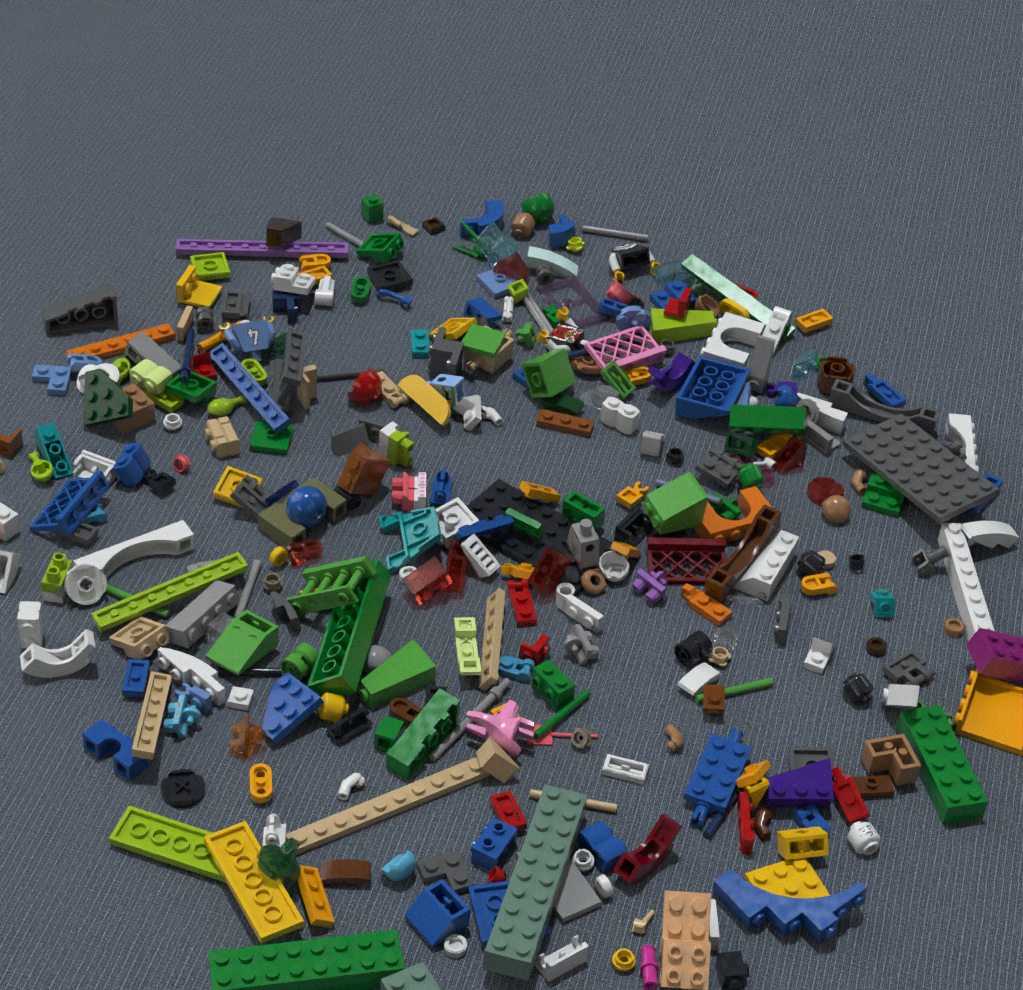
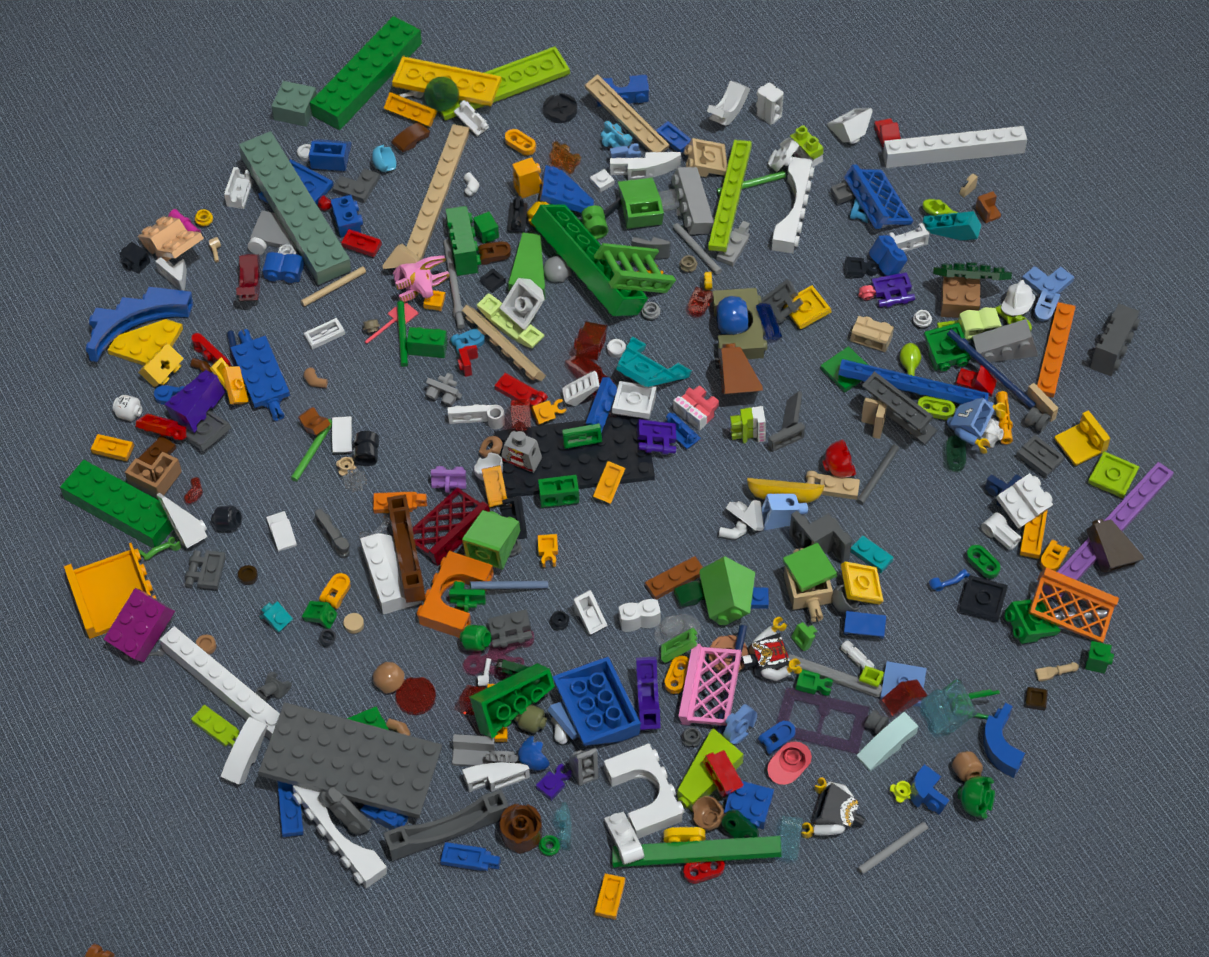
camera: 140 degrees right, 15 degrees up
(163, 451) = (892, 285): none -> dark purple plate
(307, 733) = (526, 177): none -> light orange brick
(346, 231) = (1074, 589): none -> orange fence
(444, 637) = (523, 302): none -> white slope
(468, 490) = (656, 431): none -> dark purple plate
(811, 563) = (355, 600): black head -> none
(847, 578) = (320, 613): none -> green bracket
(862, 731) = (195, 492): none -> clear red arm
(906, 817) = (112, 447): none -> light orange plate
(992, 575) = (215, 726): none -> lime hinge

